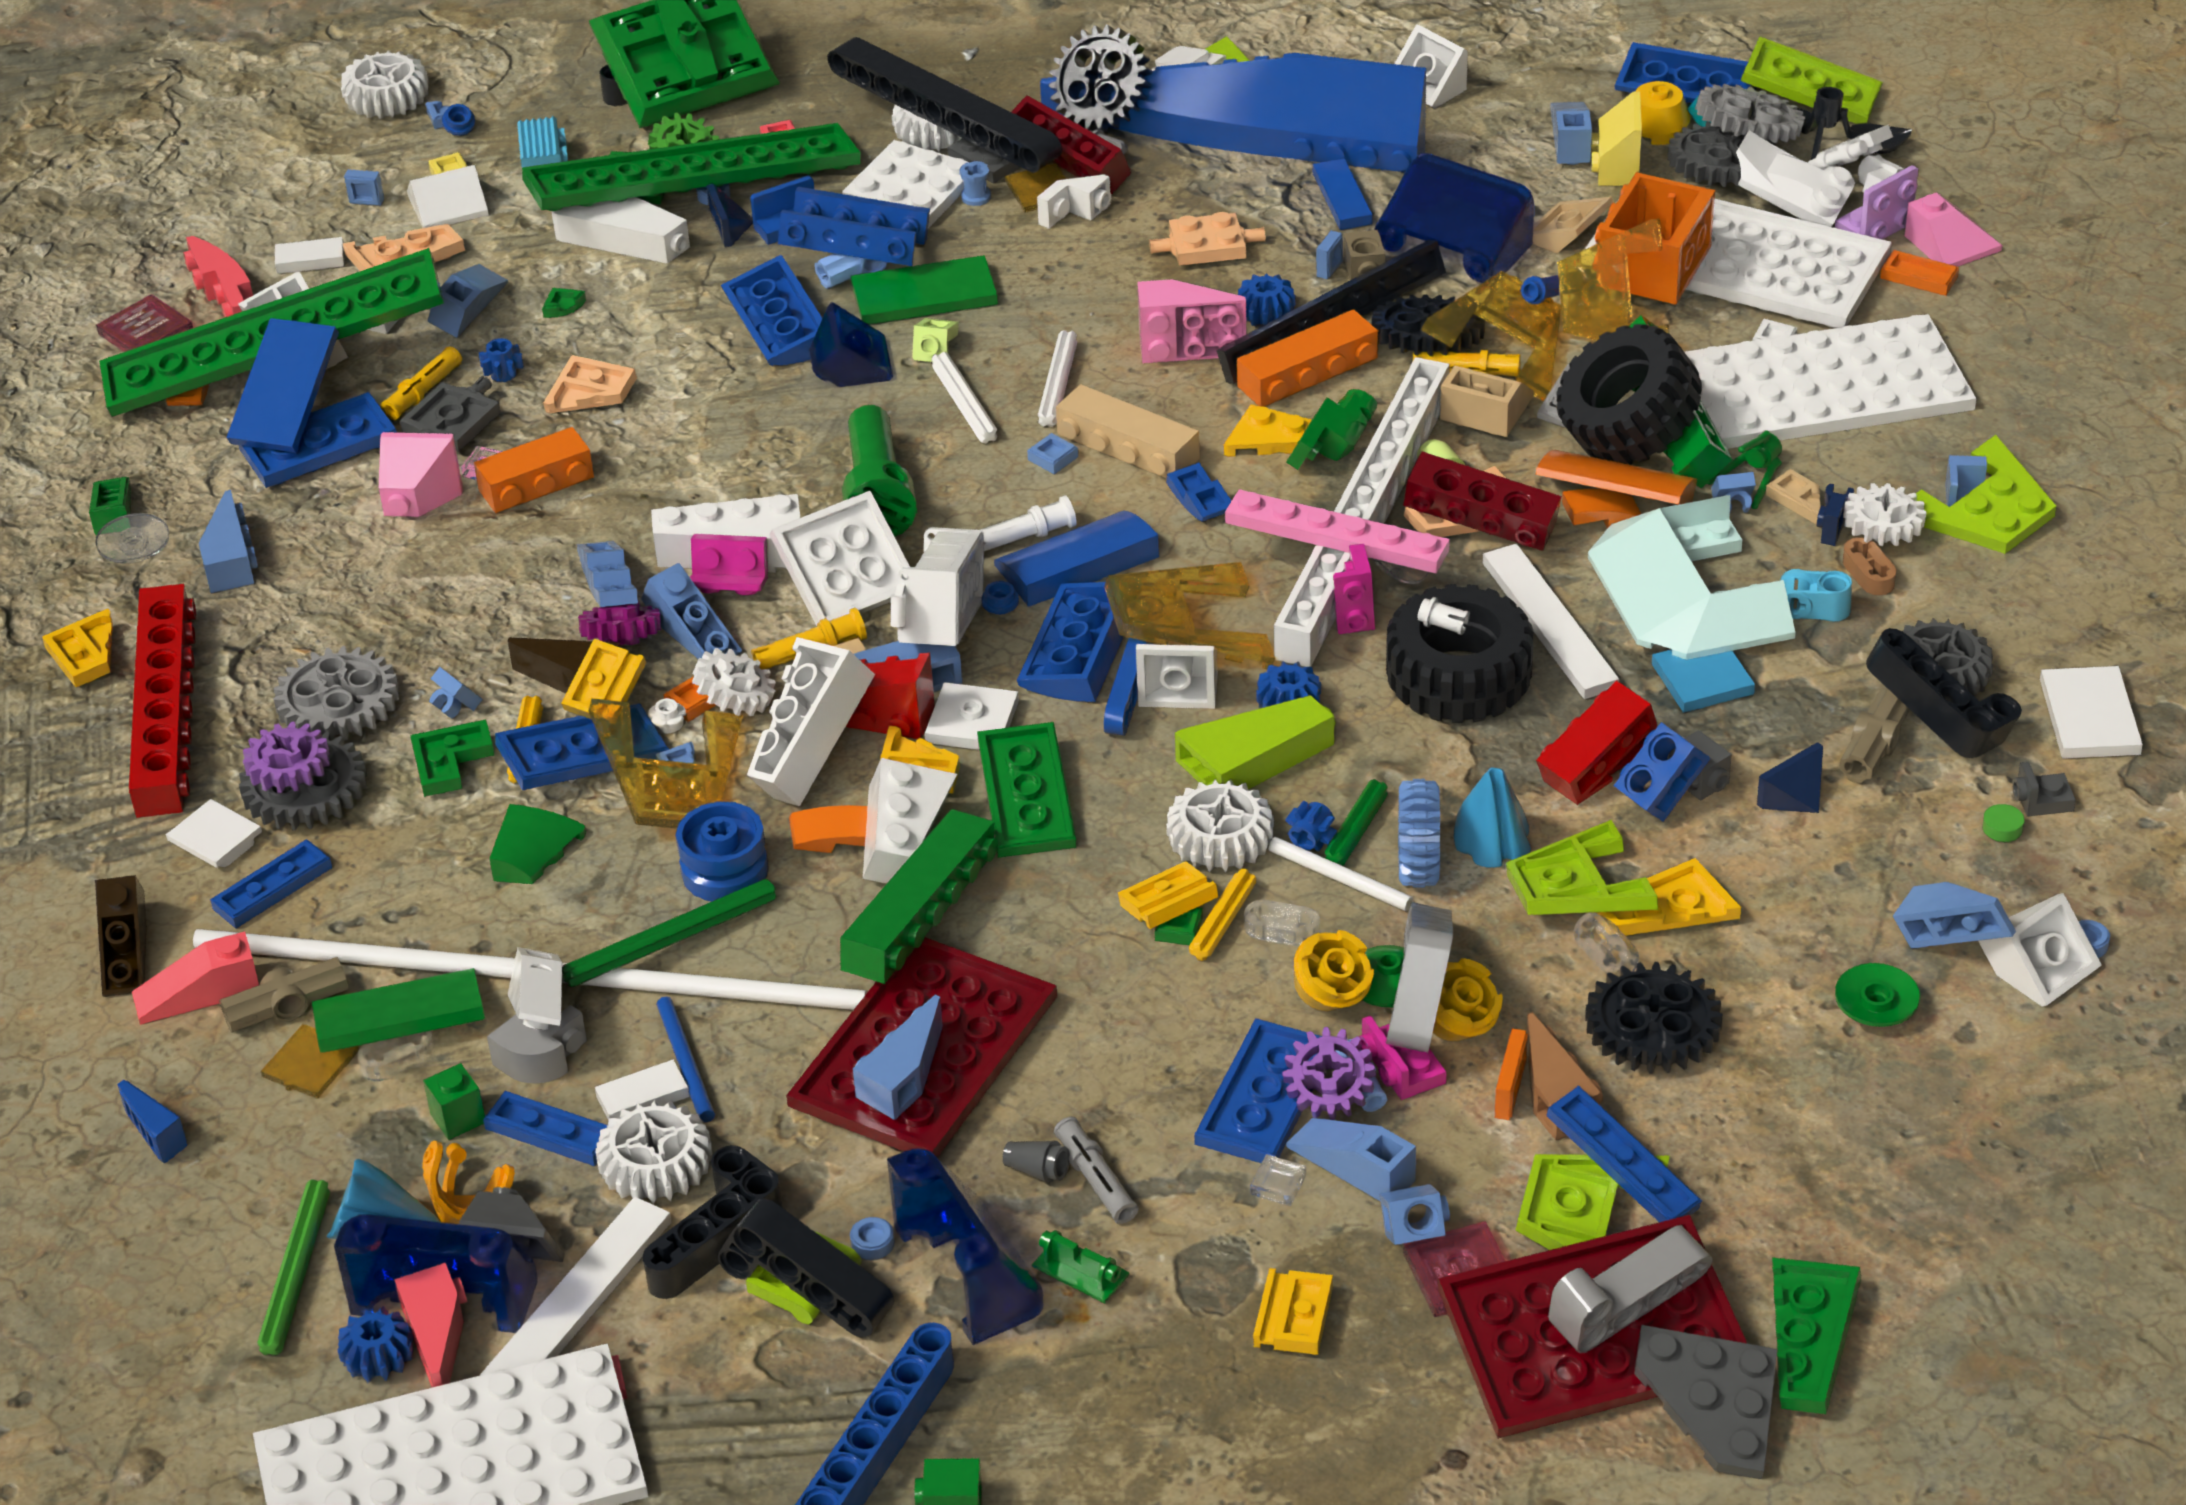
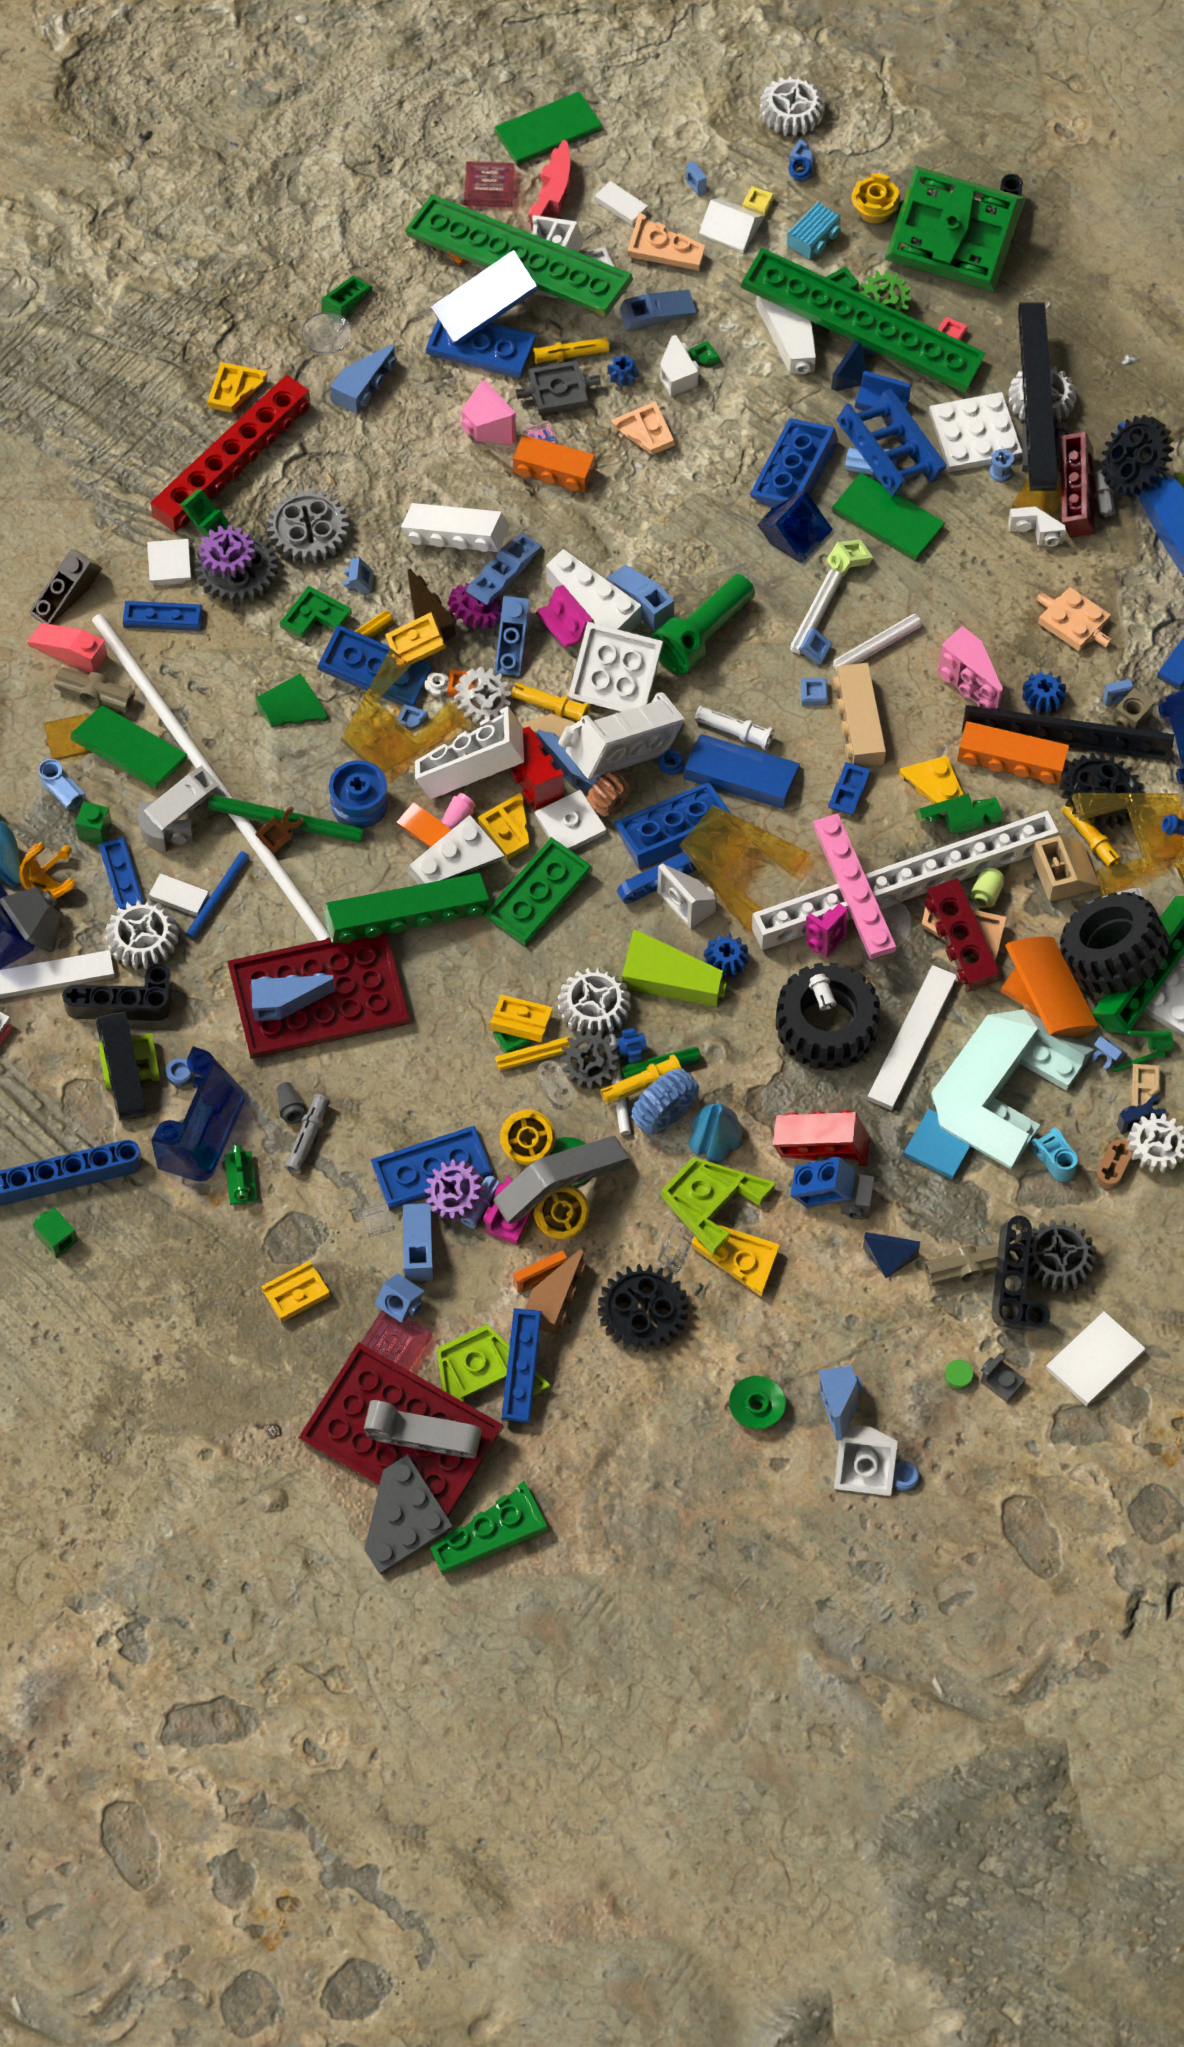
camera: 45 degrees right, 20 degrees up
(147, 252) = (547, 127): none -> green tile
(214, 766) = (203, 513): none -> green slope
(348, 1101) = (60, 785): none -> light blue piece
(510, 572) = (455, 527): none -> white brick
(554, 322) = (677, 369): none -> white slope
(571, 87) = (876, 198): none -> yellow cone
(677, 946) = (276, 831): none -> reddish brown plate
(806, 480) = (655, 601): none -> medium blue slope
(844, 784) = (458, 810): none -> bright pink cone
(984, 655) = (609, 793): none -> nougat gear
(1004, 417) = (815, 646): none -> medium blue tile
(1290, 864) = (585, 1070): none -> dark grey gear
(1371, 829) = (638, 1082): none -> yellow pin

